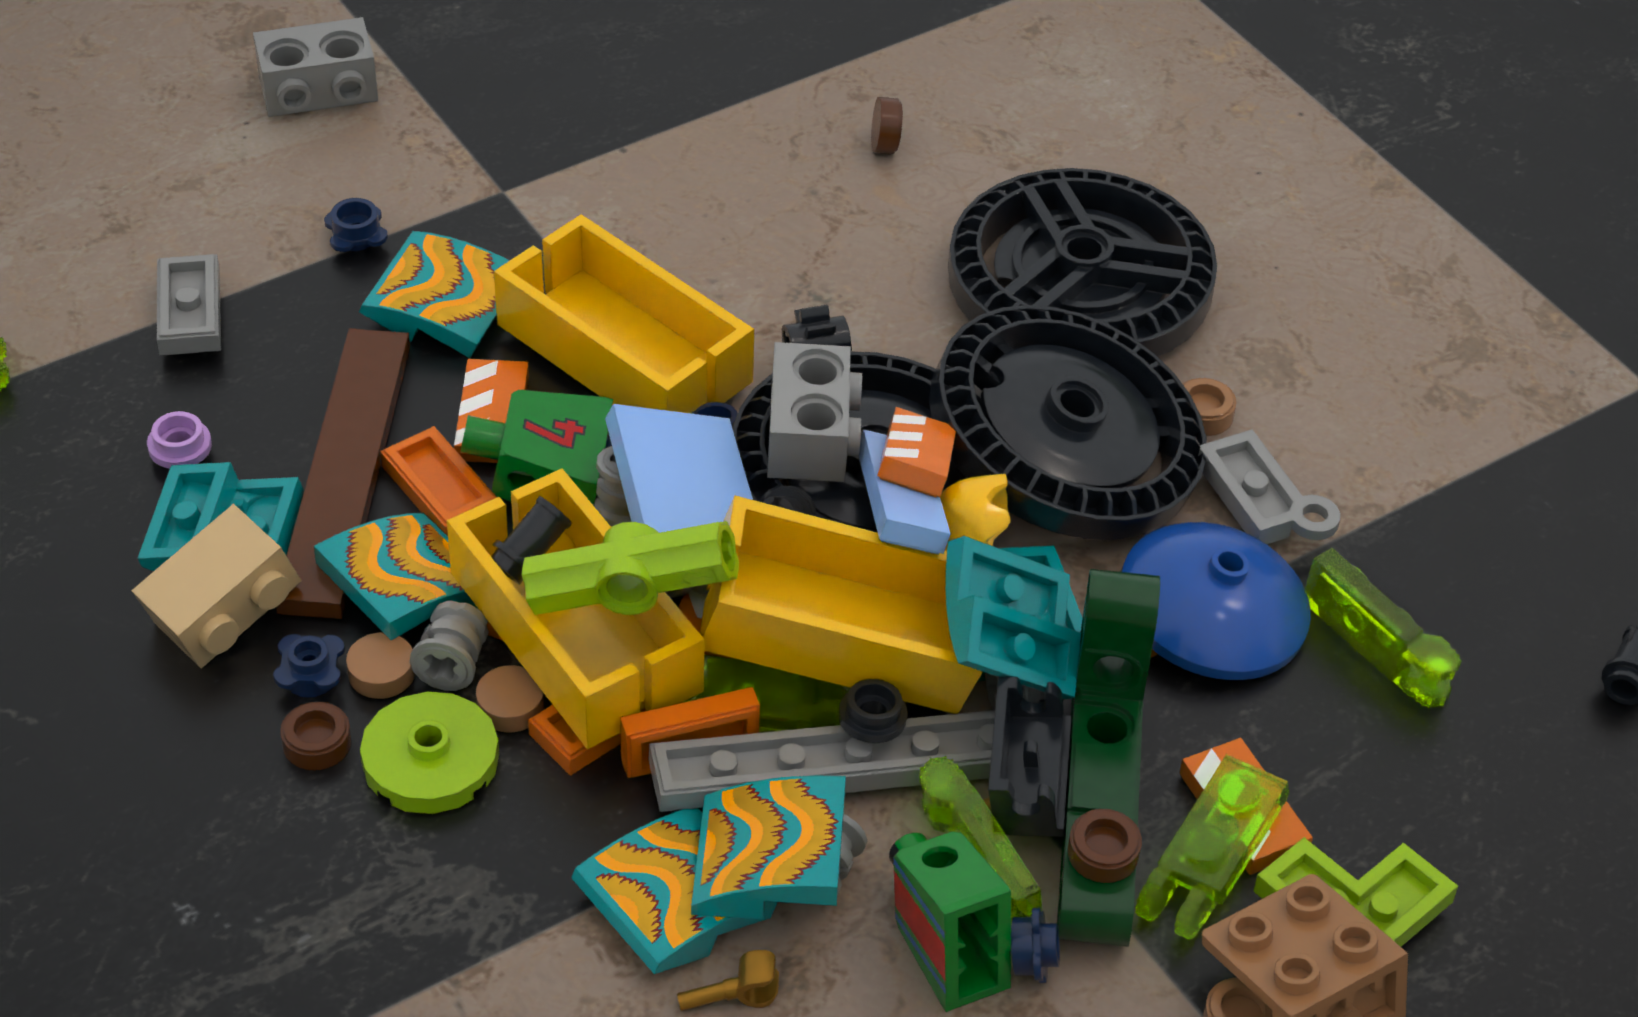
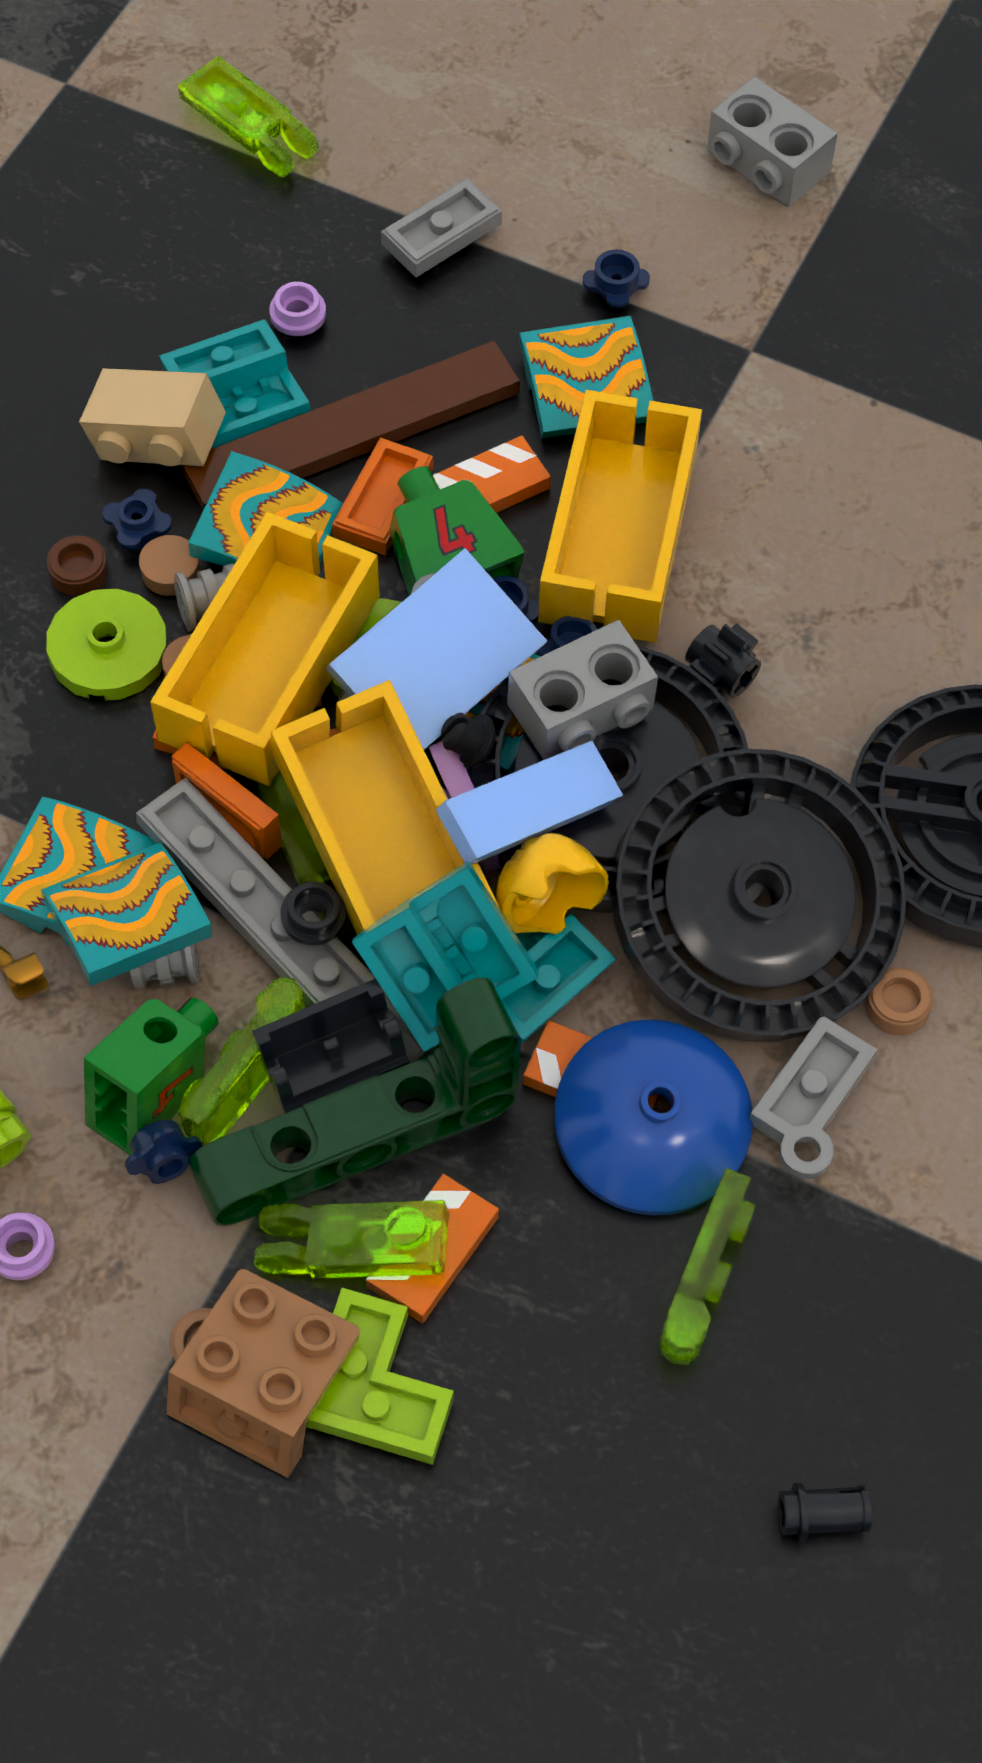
camera: 60 degrees right, 15 degrees up
(530, 538) = (276, 578): black pin -> none
(630, 568) = (266, 654): lime piece -> none
(917, 452) = (578, 789): orange tile -> none
(1104, 845) = (267, 1148): reddish brown tile -> none

